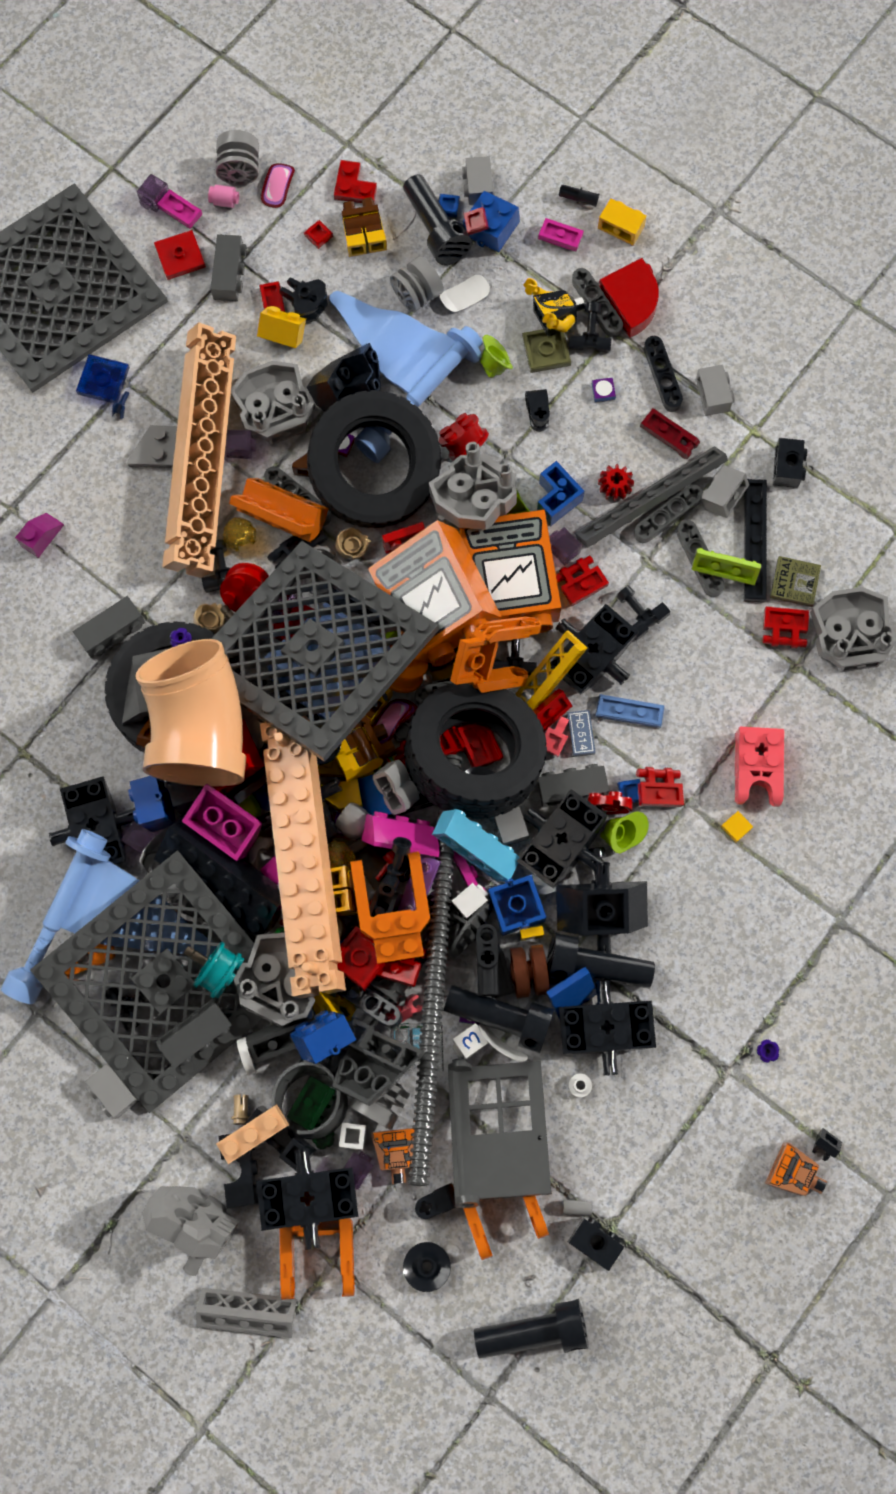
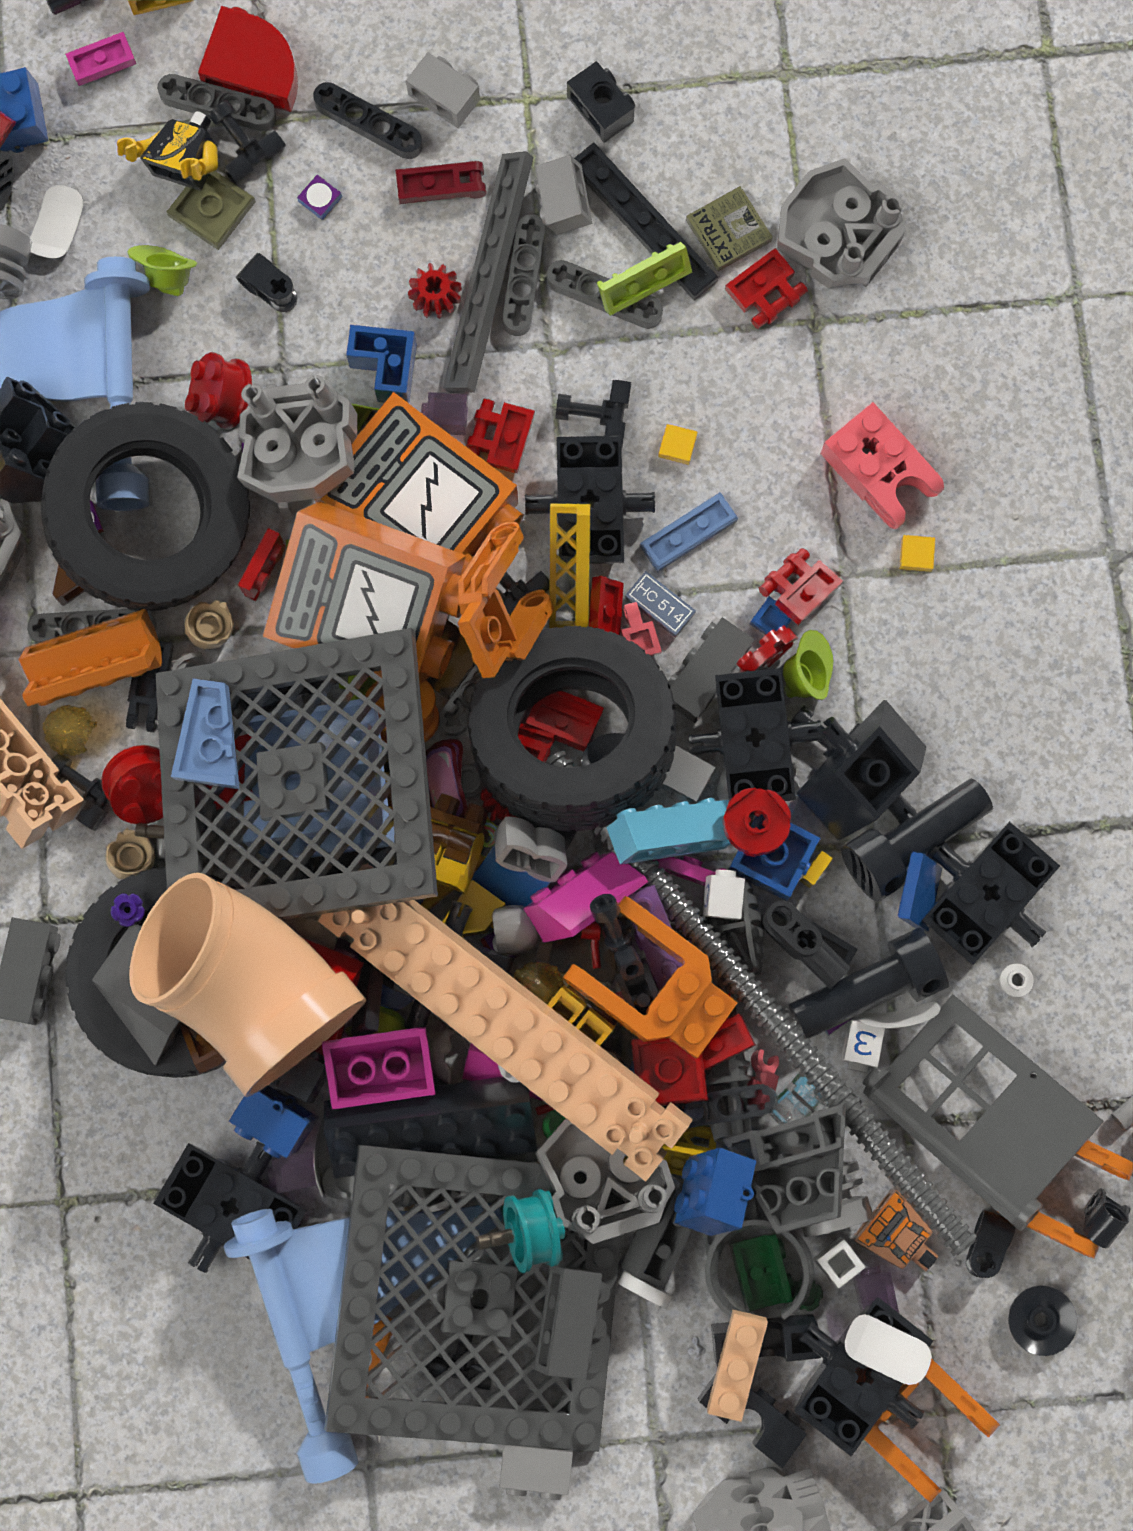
camera: 45 degrees left, 5 degrees up
(240, 1111) = (692, 1351): tan pin -> none
(293, 590) = (207, 738): none -> medium blue wing
(330, 1196) = (887, 1350): none -> white sticker
(506, 1247) = (1104, 1219): none -> black piece
(529, 971) = (855, 911): copper wheel -> none
(531, 870) = (757, 802): none -> red plate
(666, 663) = (677, 444): none -> yellow tile

